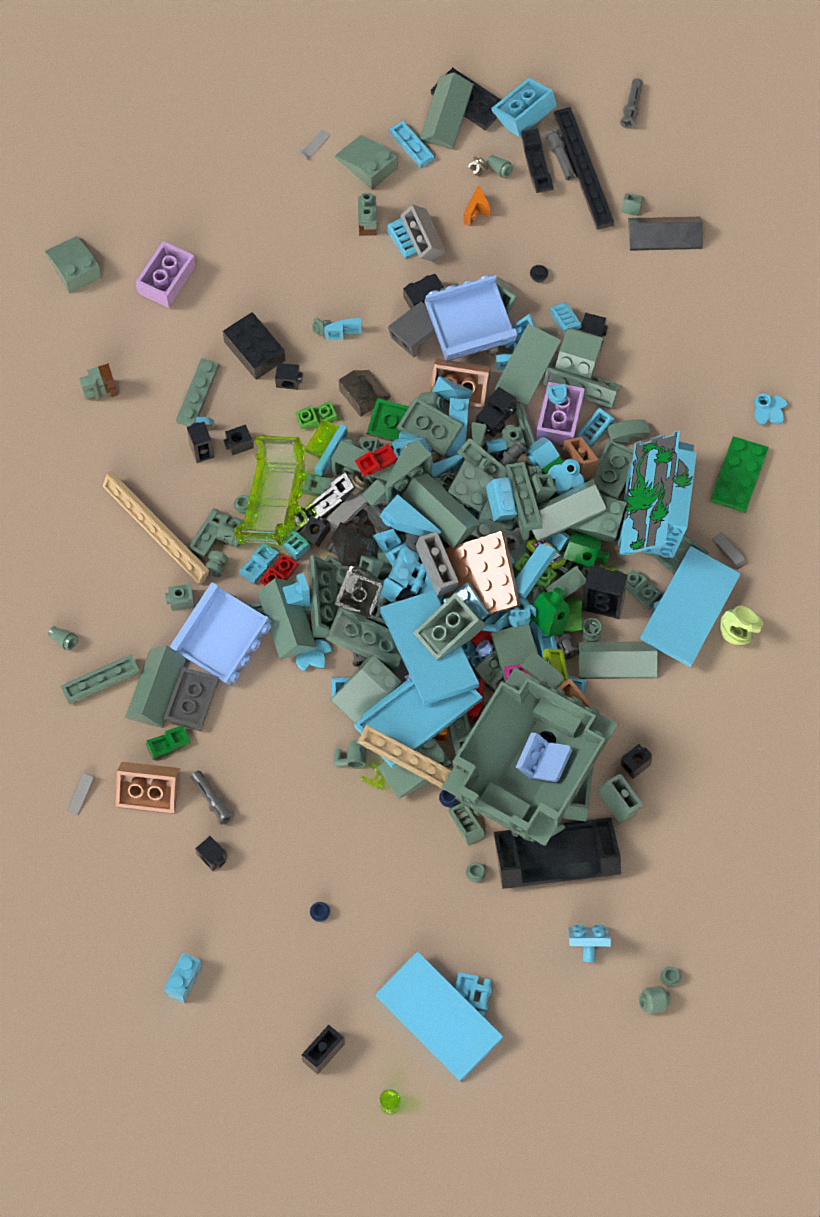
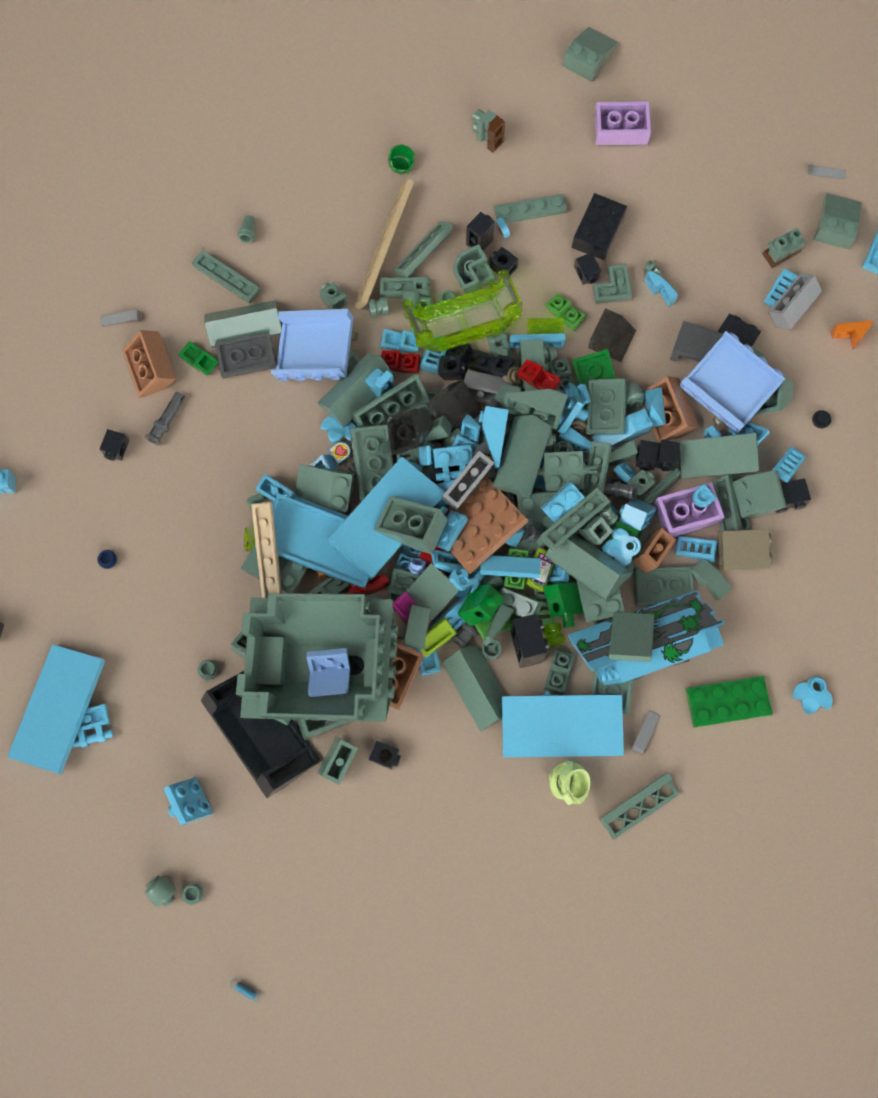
camera: 60 degrees right, 10 degrees up
(79, 471) = (401, 159): none -> green hair
(181, 498) = (423, 249): none -> sand green plate
(230, 467) = (472, 269): none -> sand green brick
(320, 361) = (617, 289): none -> sand green plate
(336, 665) = (340, 452): none -> tile
(341, 734) = (270, 487): none -> medium azure brick
(576, 611) = (499, 619): none -> sand green slope
(618, 391) = (744, 549): none -> dark tan panel
(651, 503) = (632, 637): none -> sand green tile
(777, 971) = (245, 990): none -> medium azure piece
(783, 587) = (635, 799): none -> sand green fence

